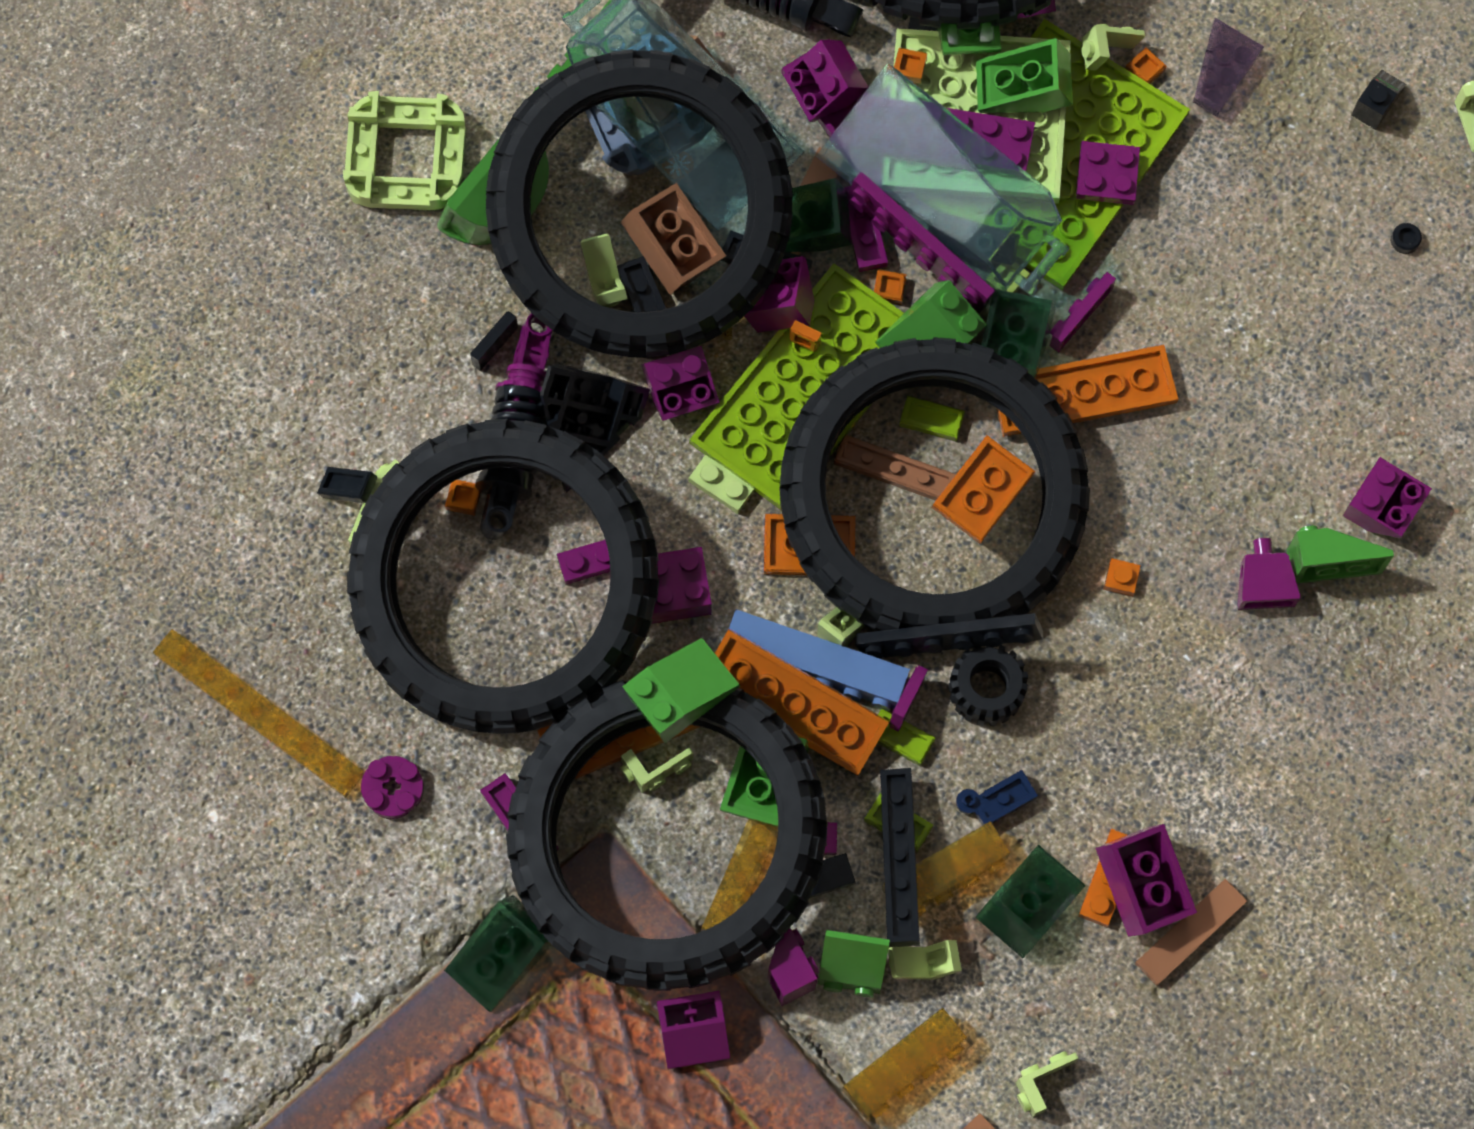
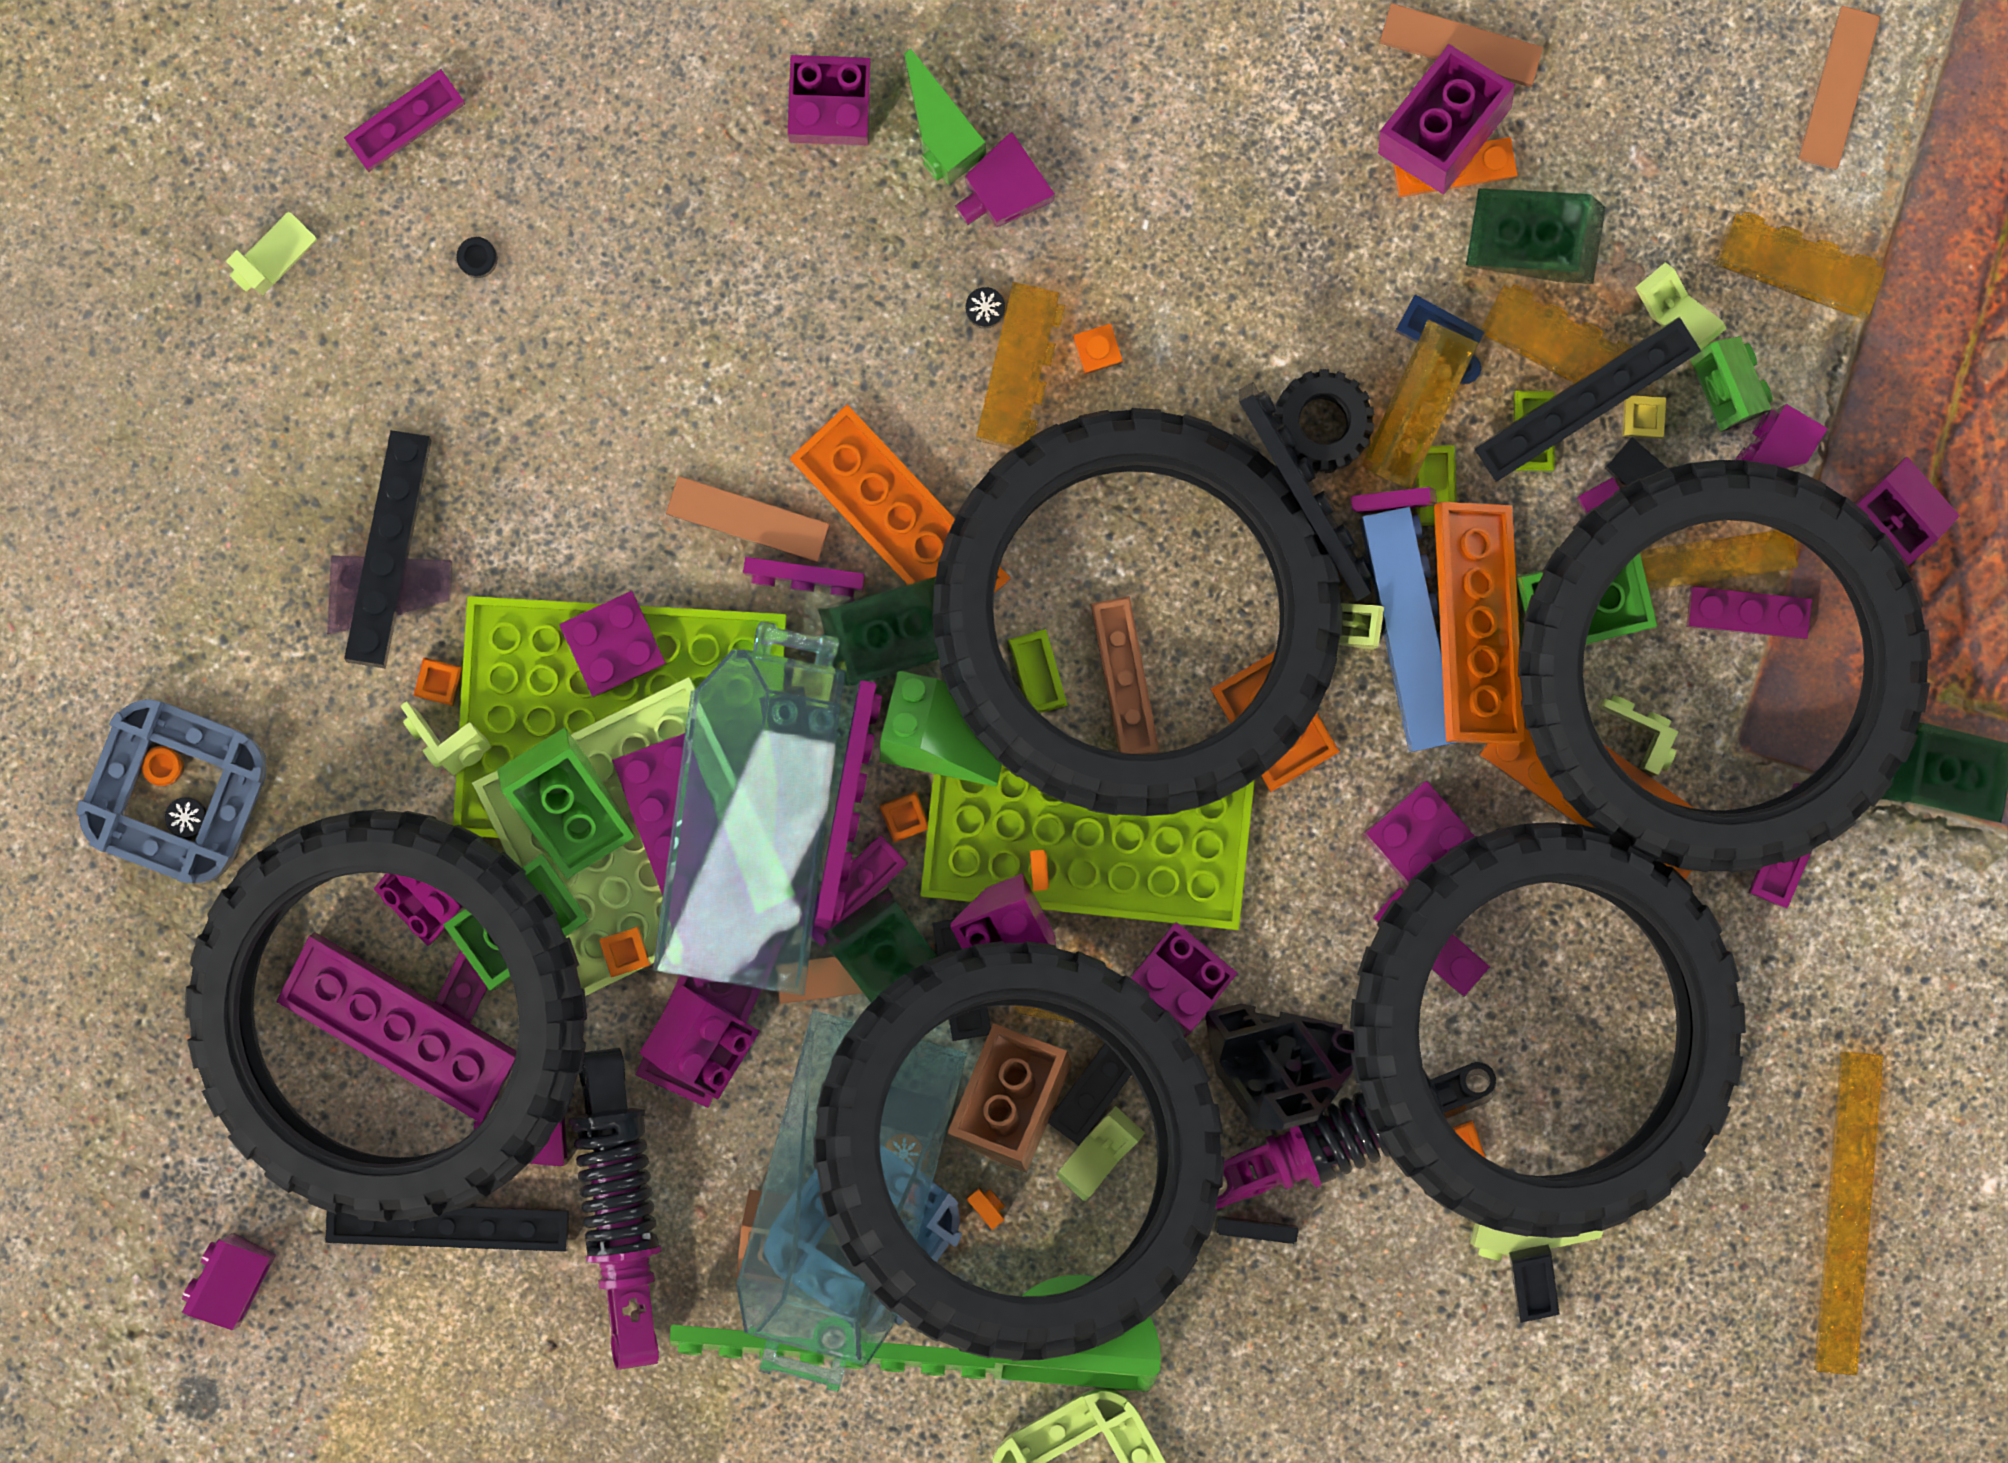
camera: 120 degrees left, 15 degrees up
(404, 799) = (1861, 1017): magenta plate -> none
(614, 191) = (987, 1206): none -> orange plate
(680, 688) = (1575, 739): bright green slope -> none
(689, 889) = (1749, 612): none -> magenta plate
(721, 484) = (1265, 863): yellowish green plate -> none
(864, 898) = (1644, 417): none -> light yellow plate
(962, 748) = (1419, 404): none -> clear yellow brick
(983, 489) = (1113, 551): orange tile -> none
(1029, 1096) = (1723, 122): yellowish green bracket -> none
(1138, 302) = (747, 519): none -> nougat tile
(1140, 518) = (1019, 365): none -> clear yellow brick
(1191, 523) = (985, 307): none -> black tile
(1248, 79) = (388, 549): none -> black plate
(1378, 99) = (313, 384): black slope -> none

